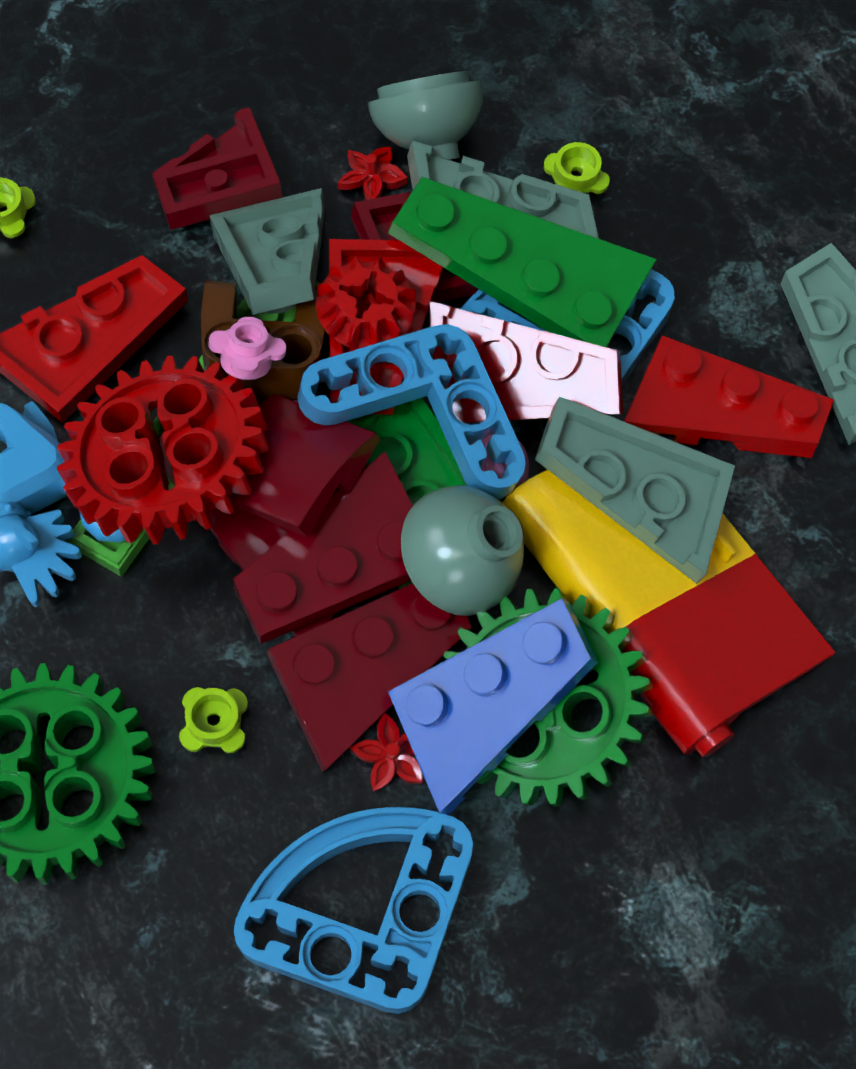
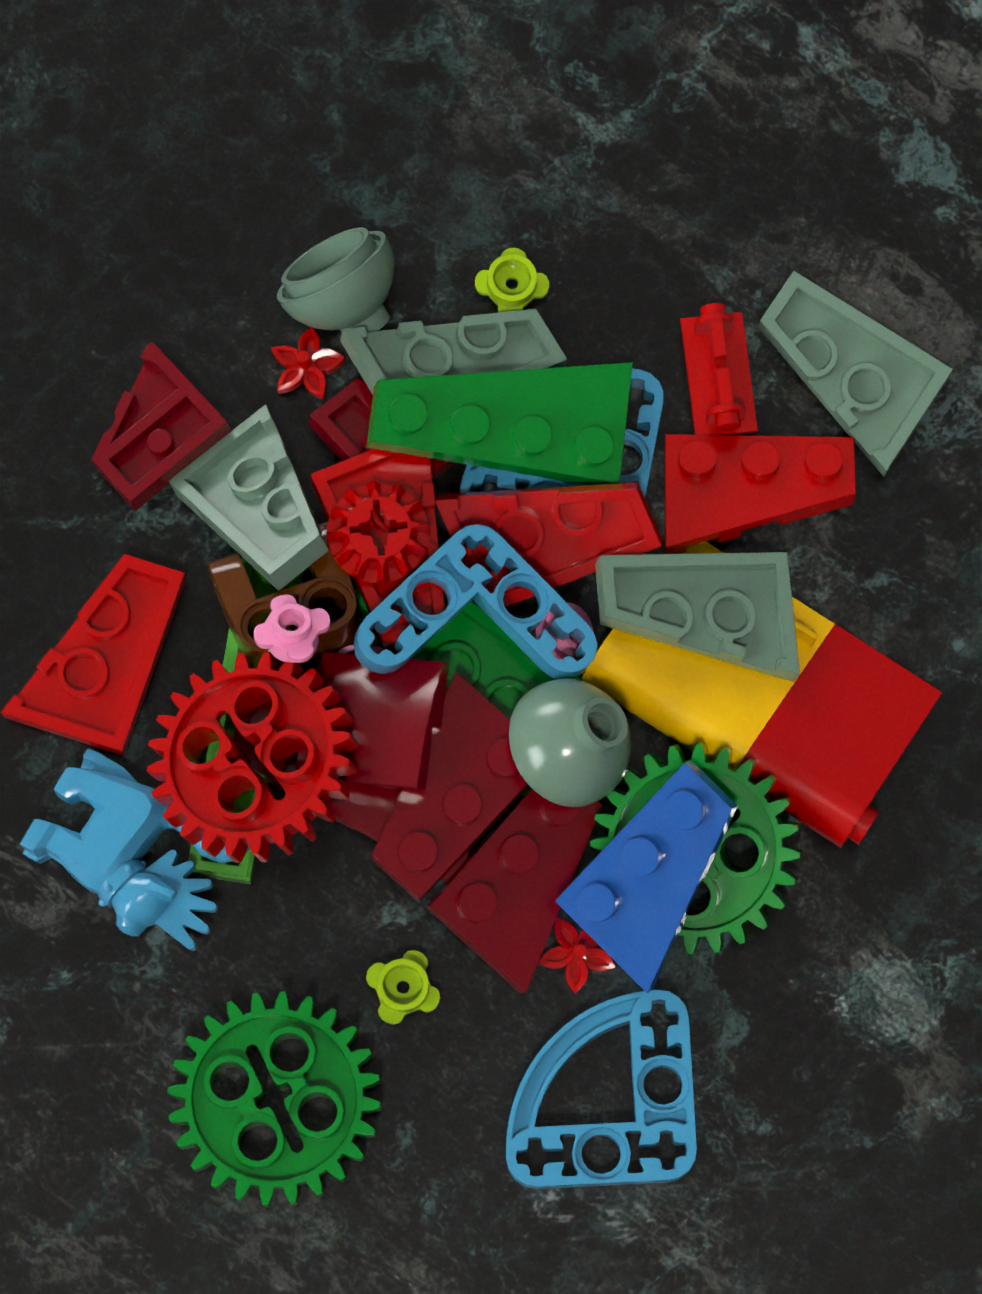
camera: 20 degrees left, 10 degrees up
(731, 302) = (718, 372): none -> red hinge

